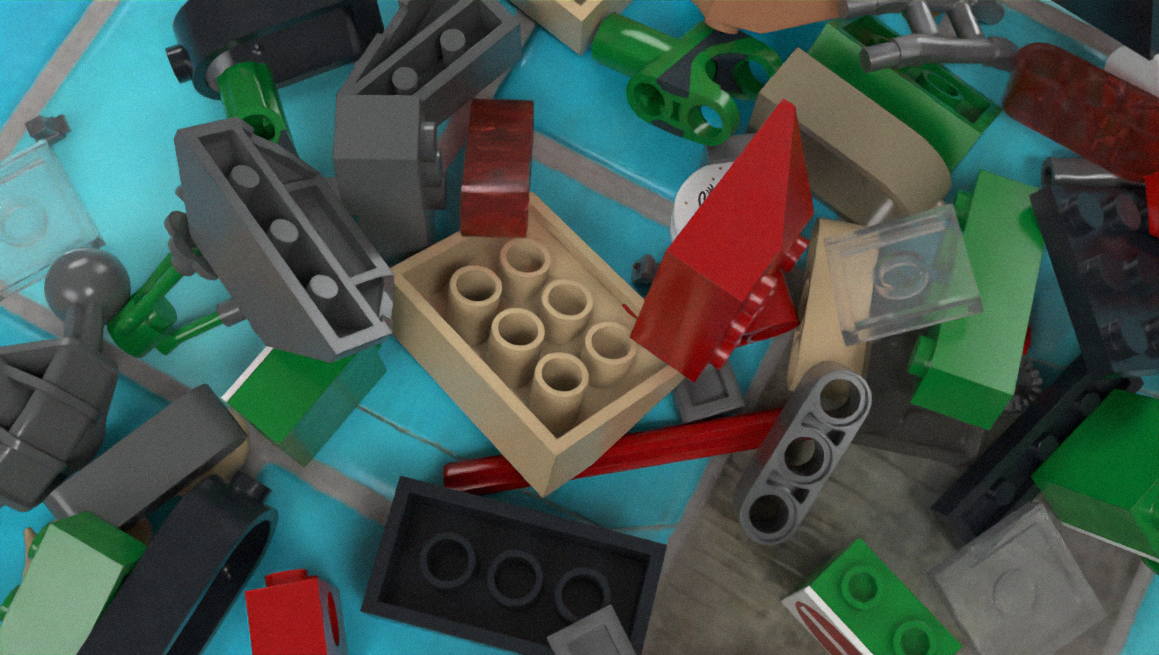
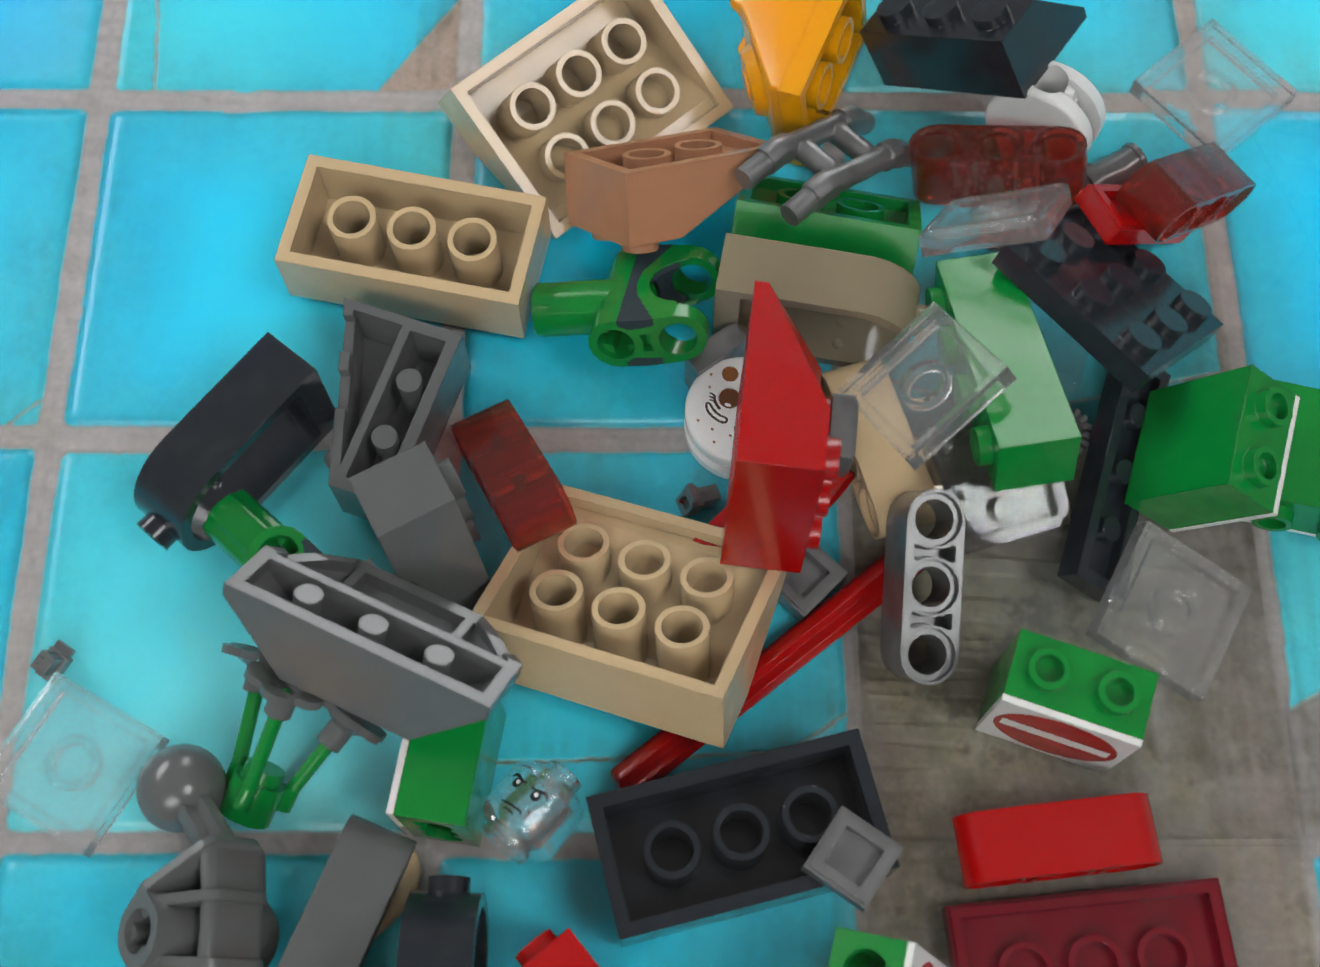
camera: 25 degrees left, 5 degrees down
(358, 462) = (533, 811): none -> clear head
(800, 280) = (844, 426): none -> flat silver tile
(1058, 159) = (996, 220): none -> clear tile

